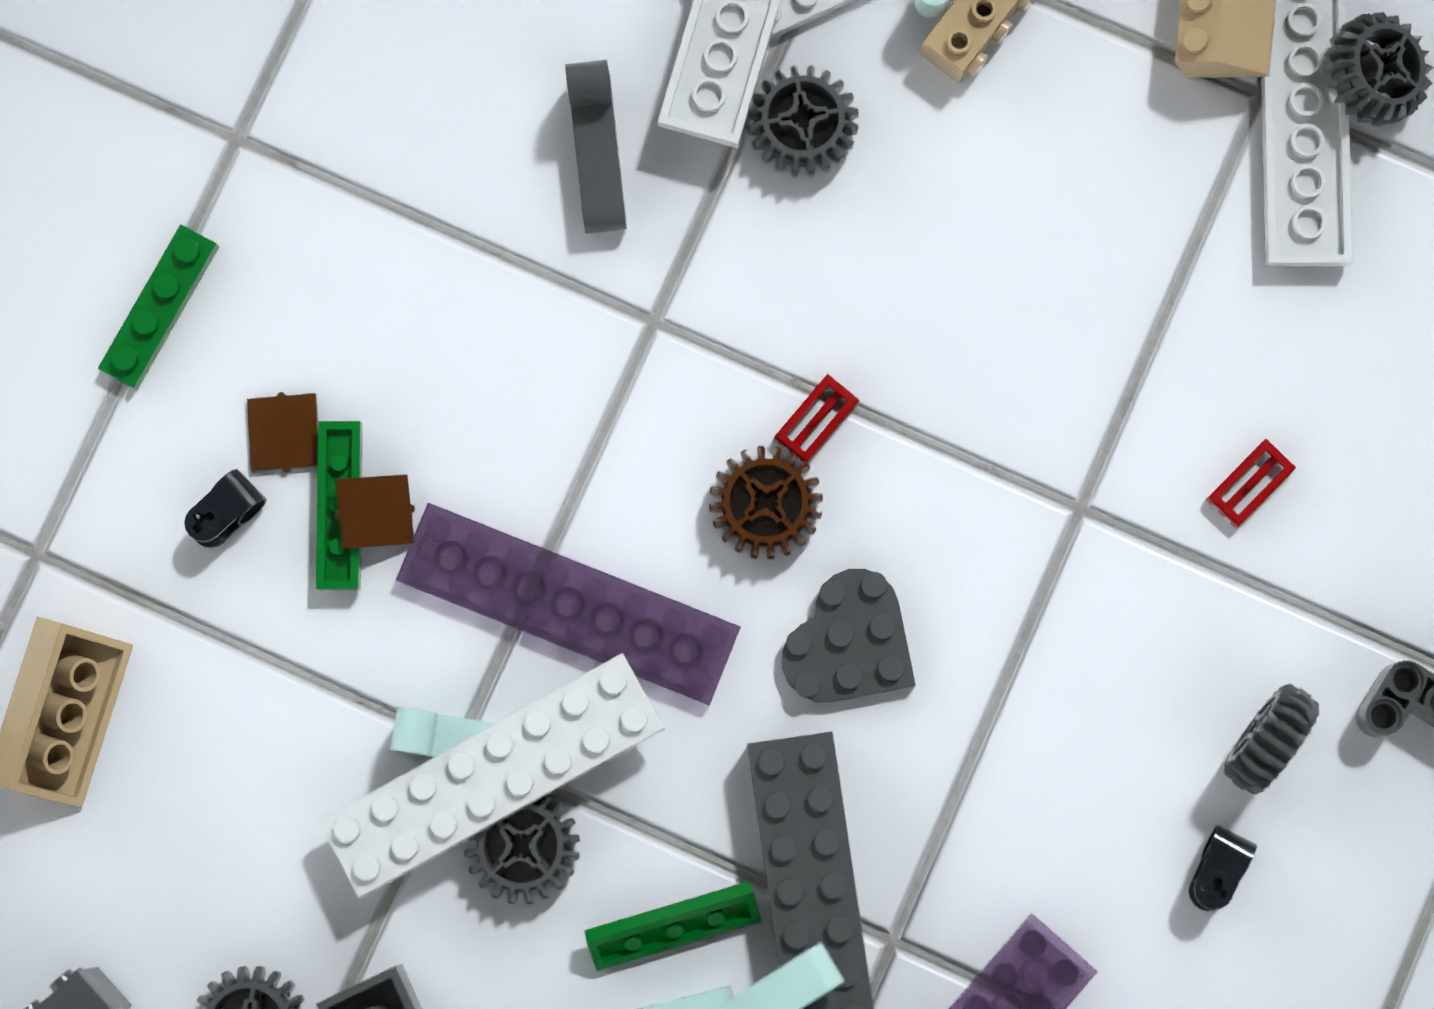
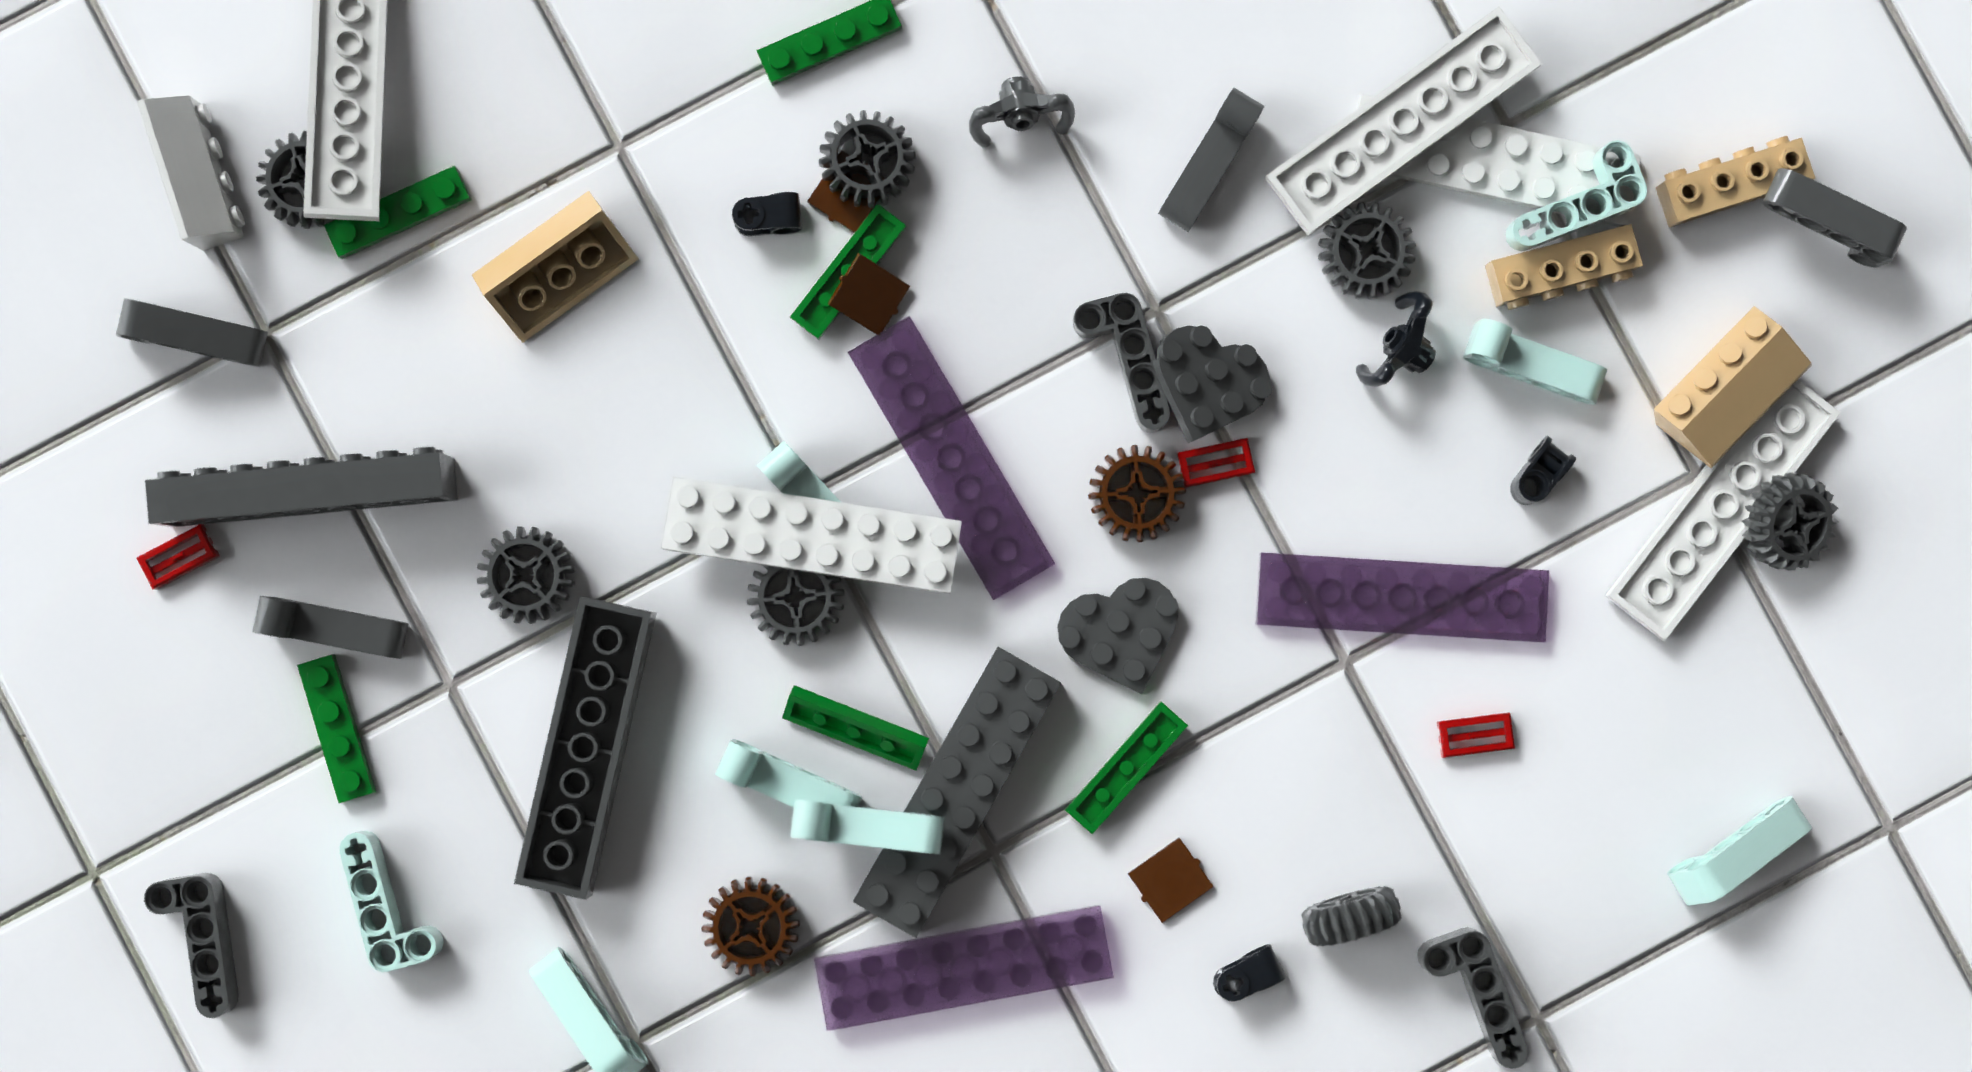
camera: 30 degrees right, 5 degrees up
(268, 404) = (881, 152): none -> dark grey gear
(385, 235) = (1020, 110): none -> dark grey piece
(666, 388) = (1129, 363): none -> dark grey beam
(750, 349) = (1209, 382): none -> dark grey plate
(902, 178) = (1404, 343): none -> black piece
(954, 764) = (1126, 767): none -> green plate
(1033, 106) = (1501, 351): none -> light aqua beam
(1078, 838) = (1170, 880): none -> reddish brown piece
(1083, 410) = (1402, 597): none -> clear purple plate
(1119, 191) = (1545, 467): none -> black piece

